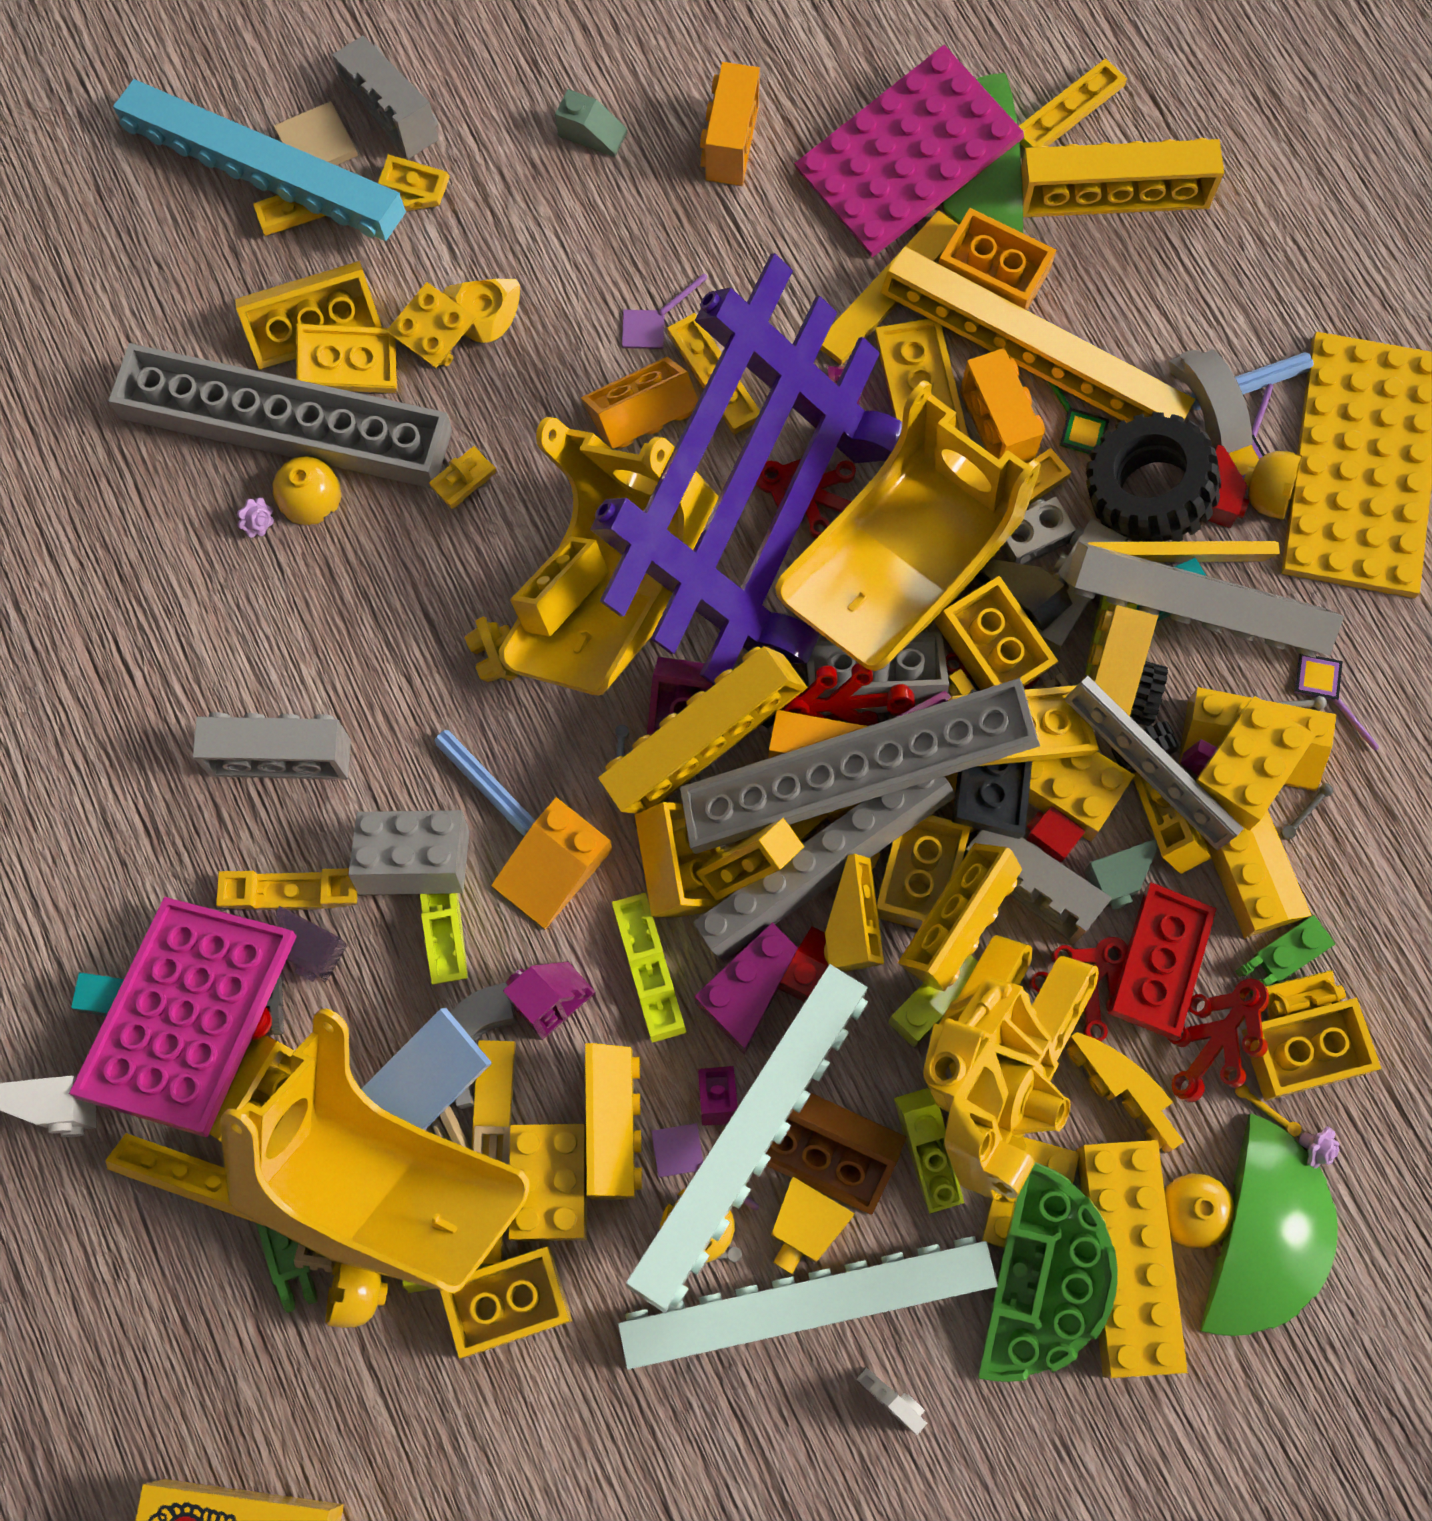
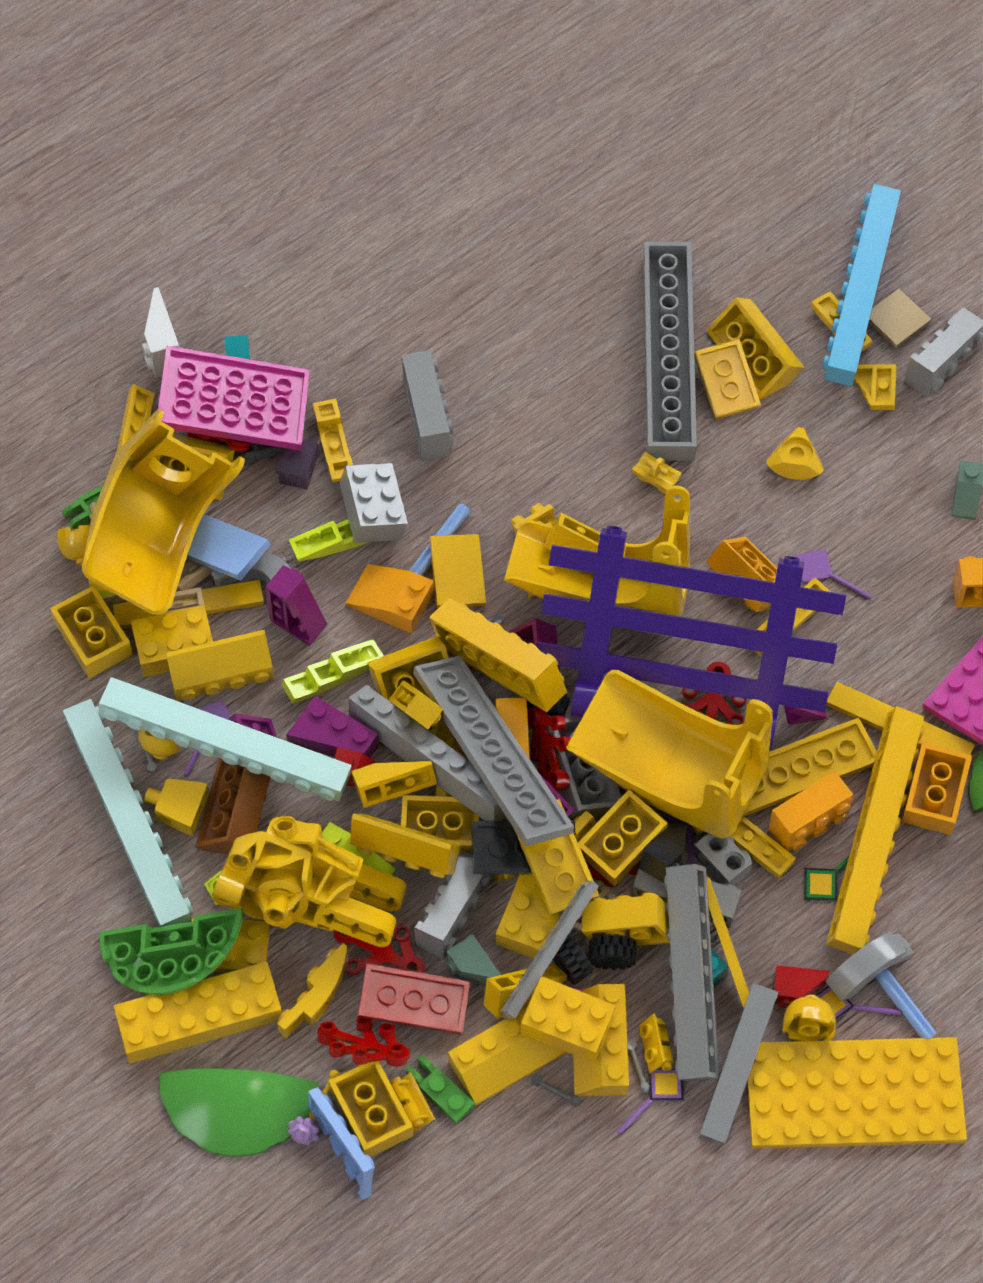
camera: 75 degrees right, 10 degrees down
(255, 517) = (591, 355): lavender plant -> none
(306, 490) = (621, 381): yellow cylinder -> none
(431, 325) = (766, 425): yellow hinge -> none
(538, 765) = (457, 569): none -> yellow tile
(902, 1407) = (69, 878): white wing -> none
(1054, 833) = (489, 912): red brick -> none
(1147, 442) = (776, 949): black tyre -> none
(1198, 1210) = (241, 1050): yellow cylinder -> none
(1280, 675) = (653, 1034): none -> yellow hinge
(1320, 578) = (739, 1063): none -> light grey tile
(1381, 1089) = (357, 1164): none -> light blue wing

